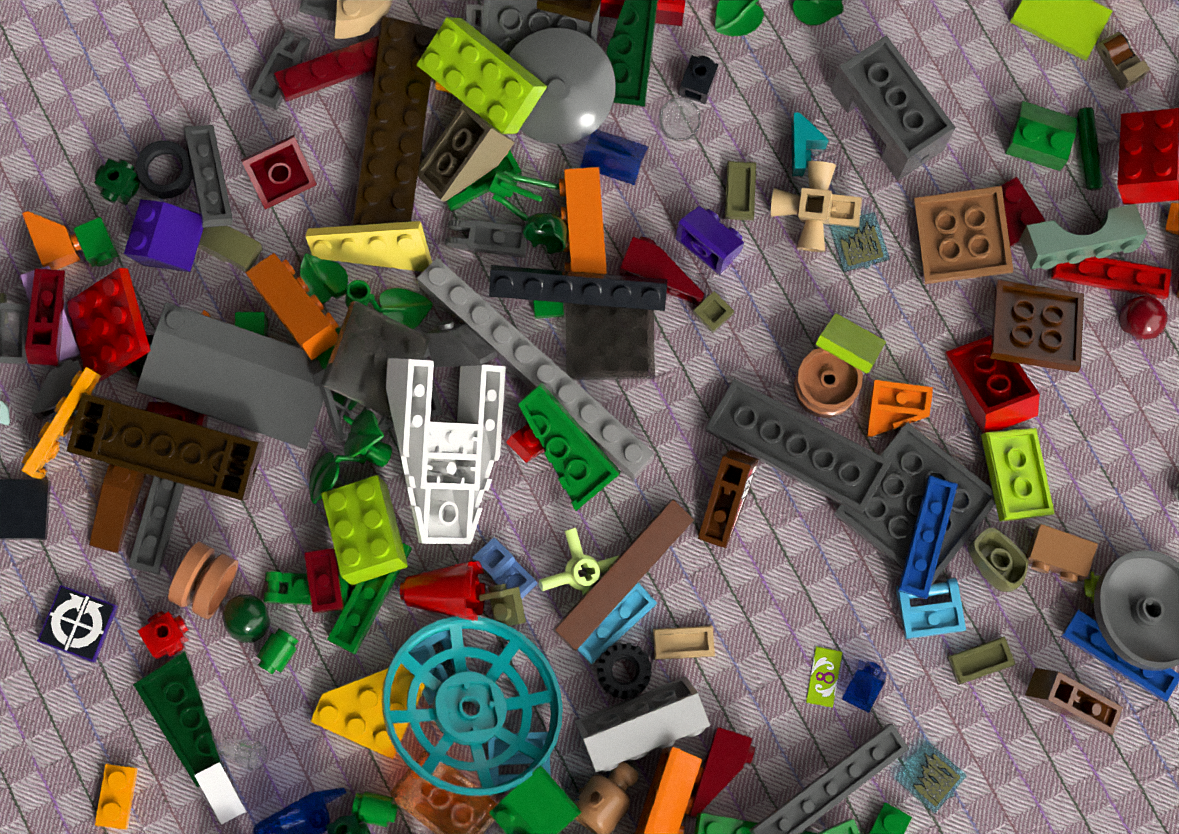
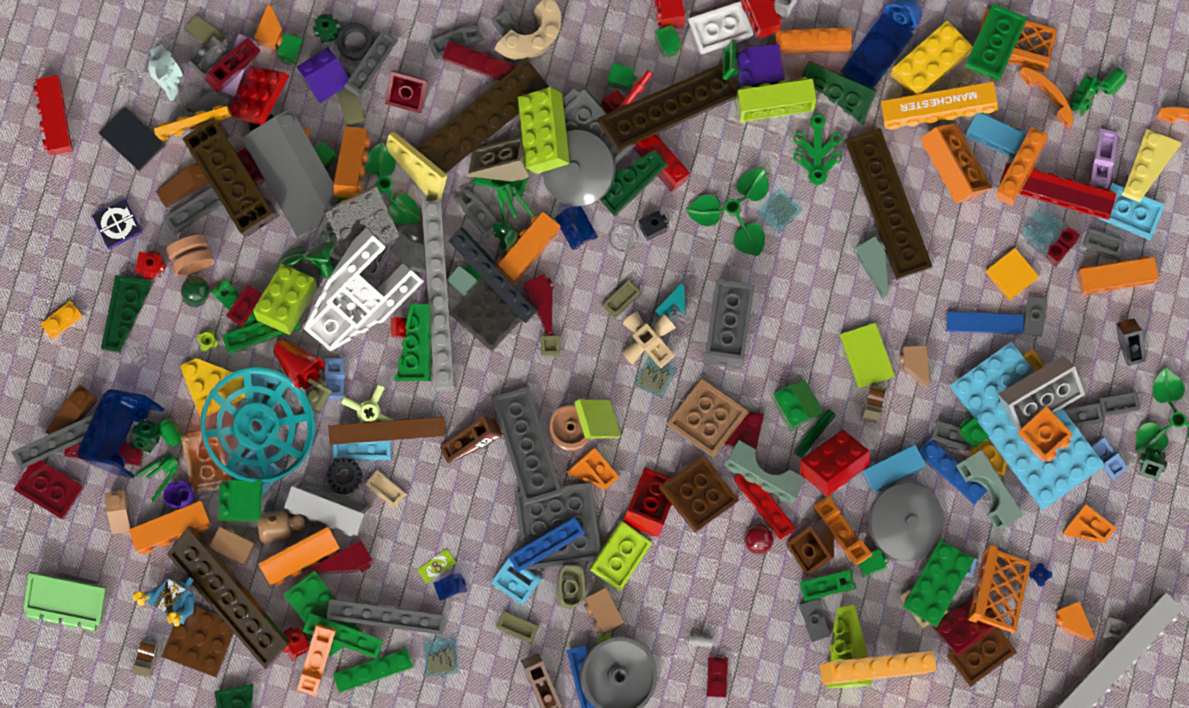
camera: 45 degrees right, 0 degrees up
(220, 793) = (108, 361): white sticker -> none
(277, 651) = (194, 319): green brick -> none
(311, 653) = (206, 345): none -> lime plate
(545, 329) = (461, 281): none -> sand green brick
(709, 239) = (581, 308): dark purple slope -> none

